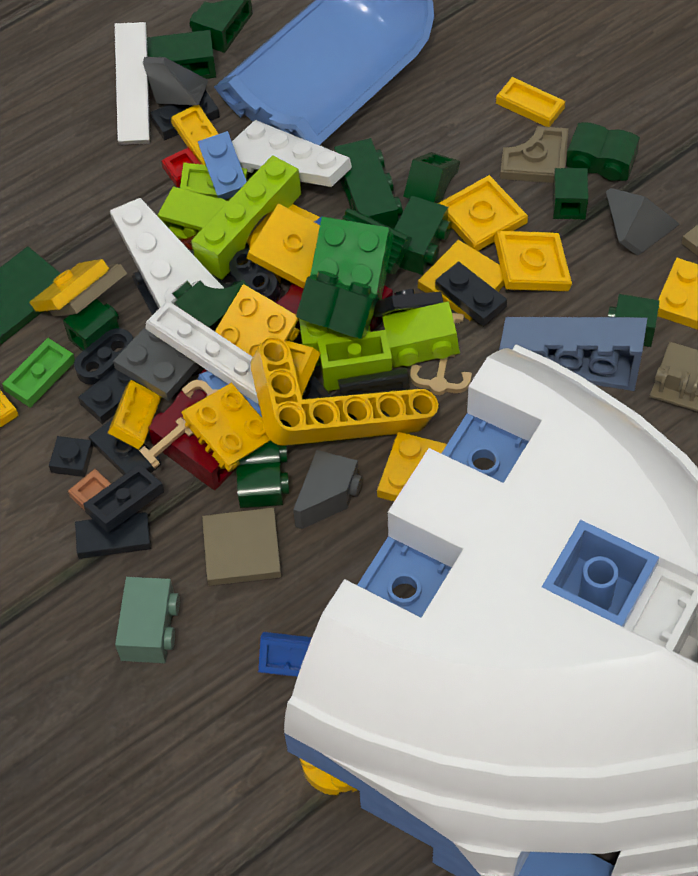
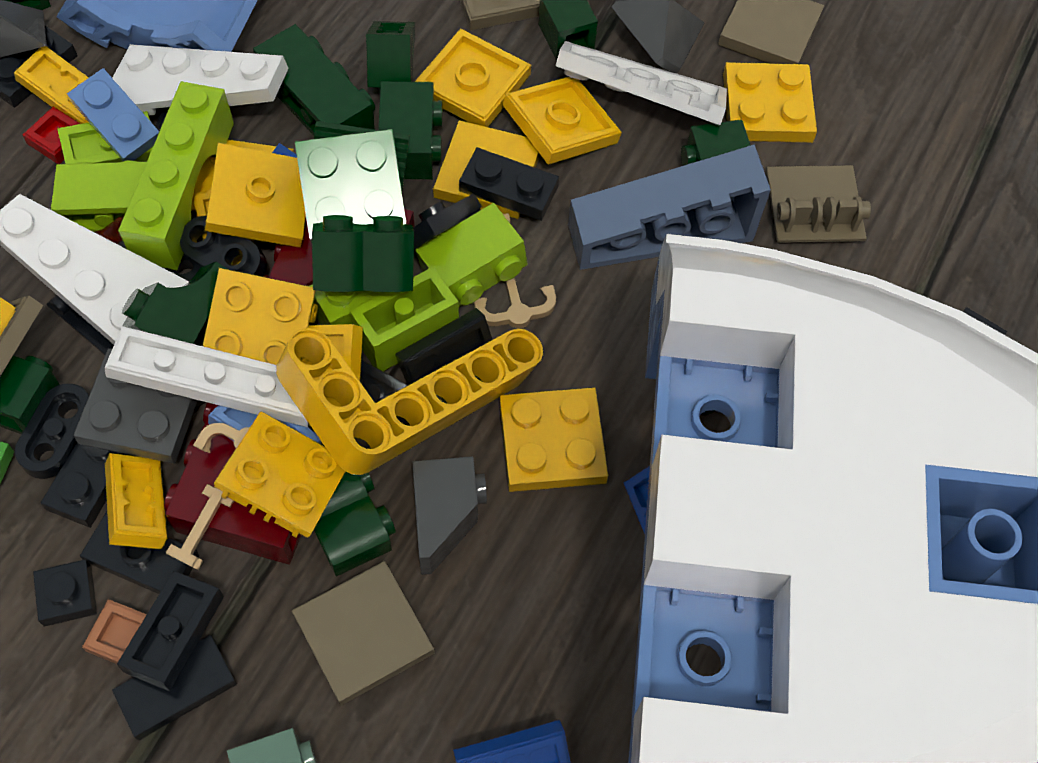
camera: 30 degrees left, 5 degrees up
(608, 255) = (658, 85): none -> white wing

